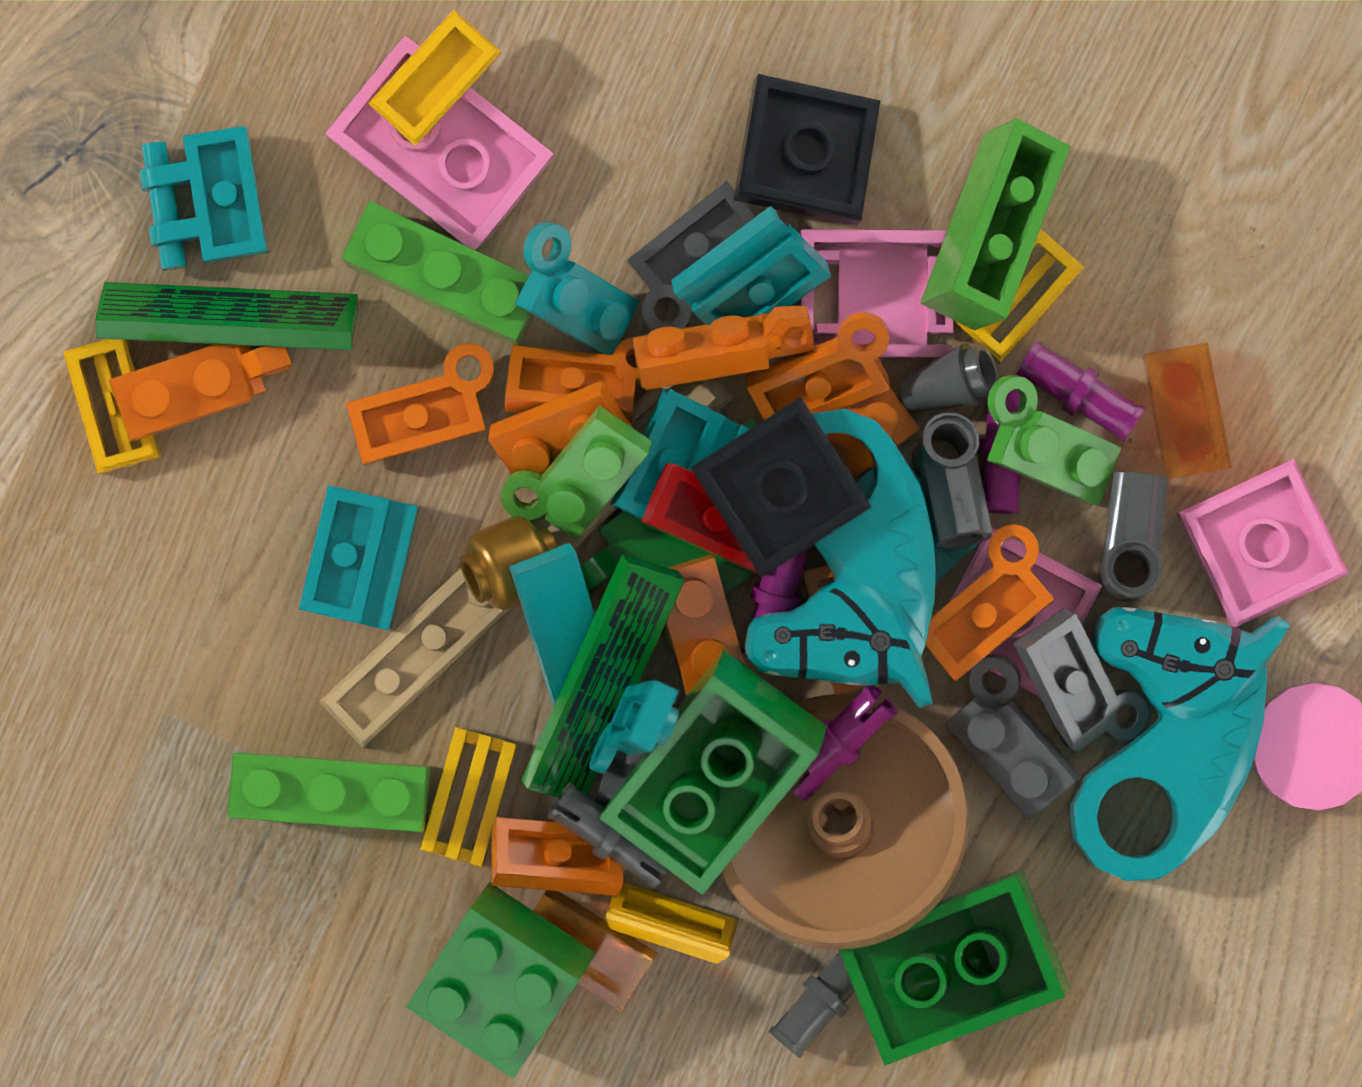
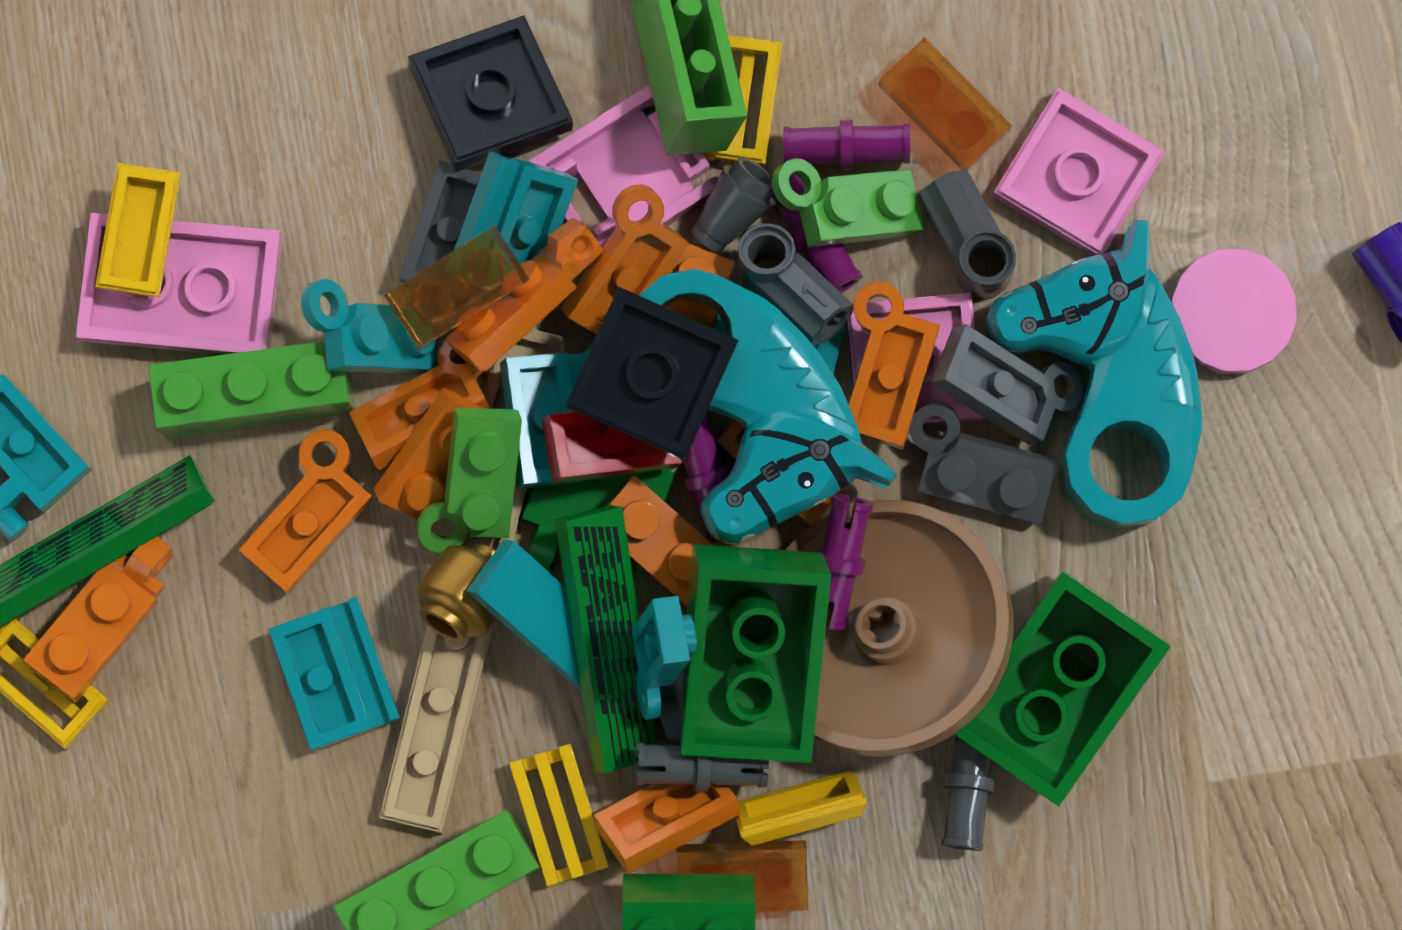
camera: 40 degrees left, 5 degrees down
(668, 304) = (456, 287): none -> clear orange plate

